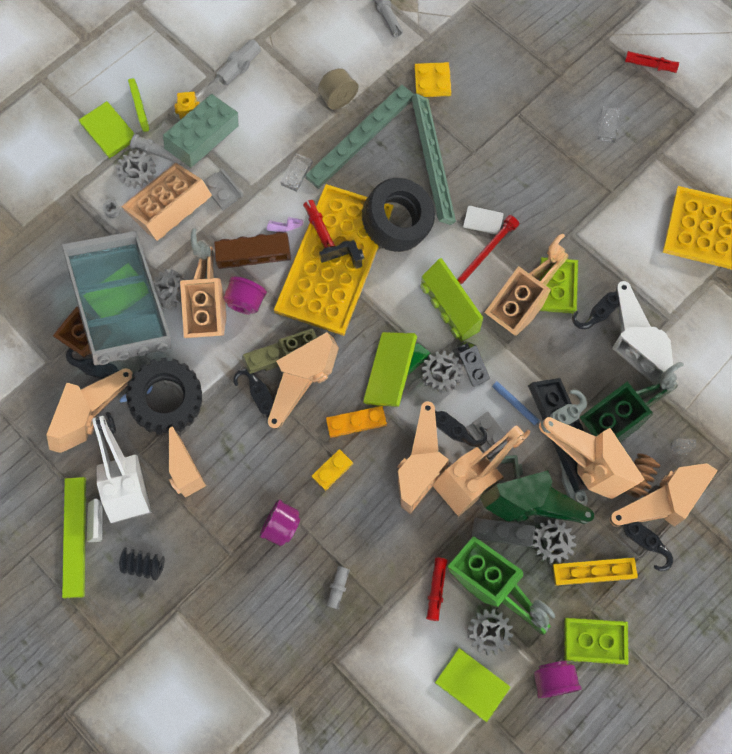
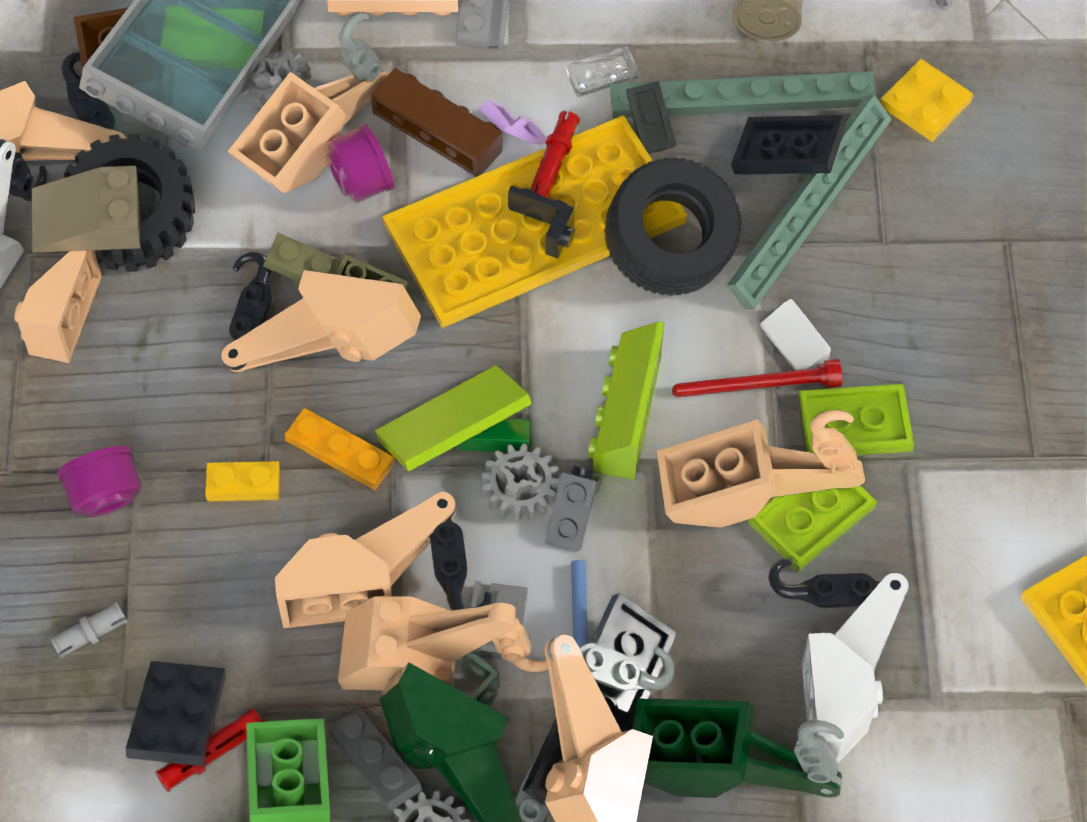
camera: 40 degrees right, 10 degrees down
(161, 416) = (87, 211): none -> dark tan slope
(338, 175) = (651, 117): none -> pearl dark grey plate
(404, 142) = (789, 144): none -> black plate
(410, 588) = (176, 713): none -> black plate
(536, 234) = (878, 412): none -> lime tile

